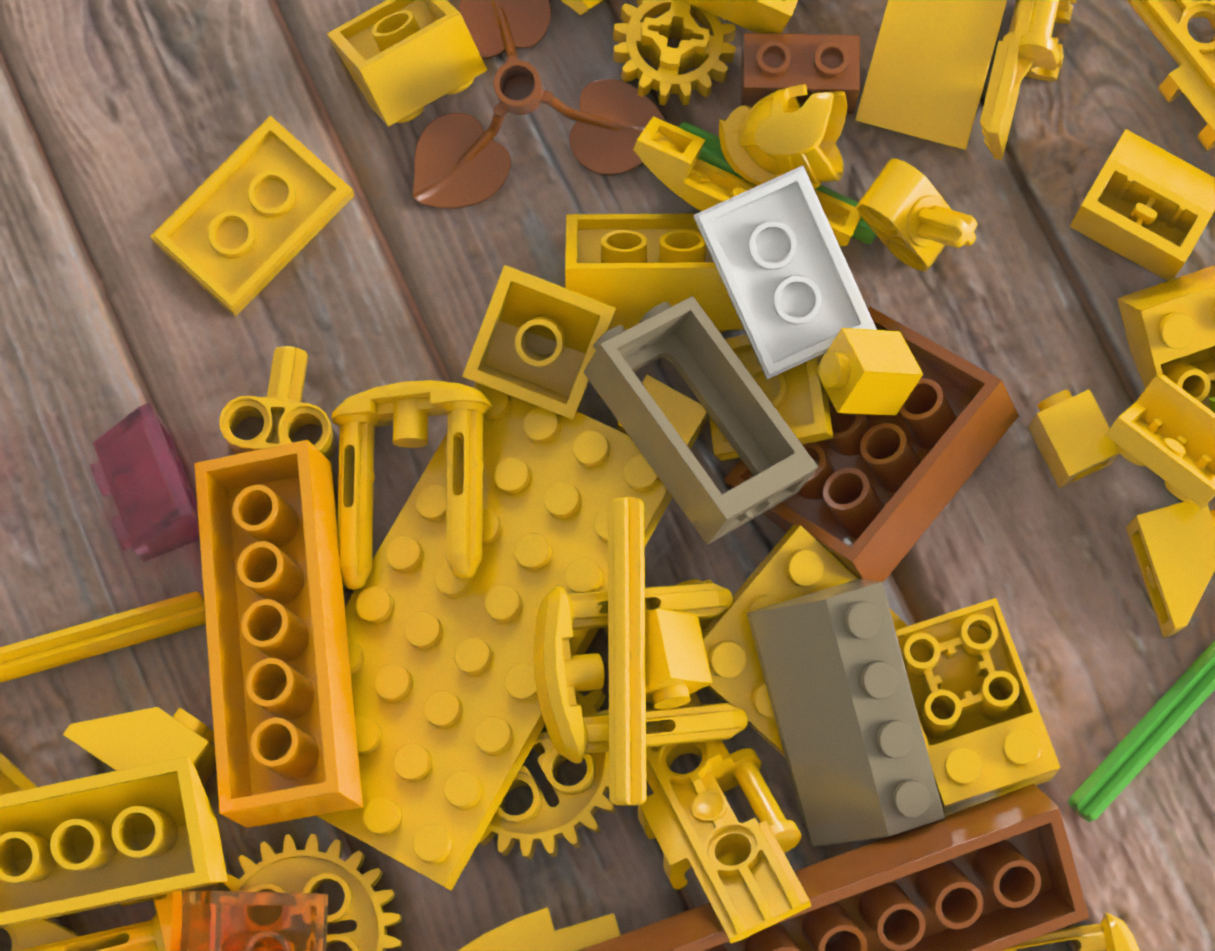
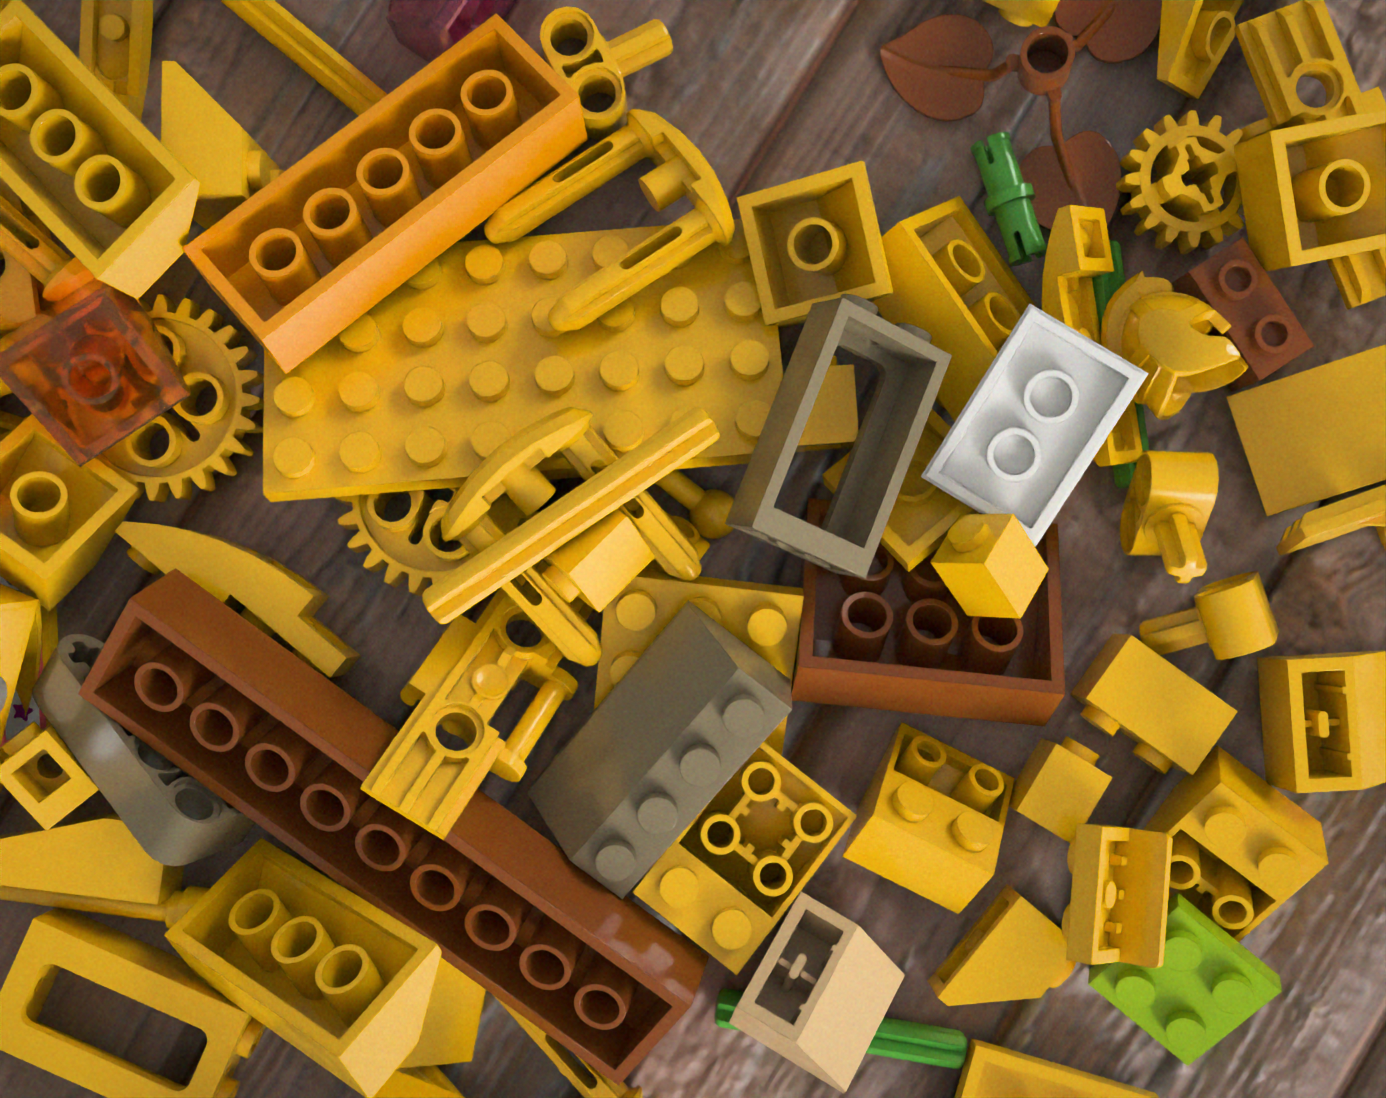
camera: 55 degrees right, 10 degrees up
(596, 179) = (1009, 199): none -> bright green pin
(682, 561) = (706, 508): none -> yellow bar
(1021, 226) = (1227, 615): none -> yellow beam
(1036, 548) = (931, 819): none -> yellow slope
(1054, 327) = (1151, 704): none -> yellow brick
(1114, 717) = (819, 993): none -> tan slope

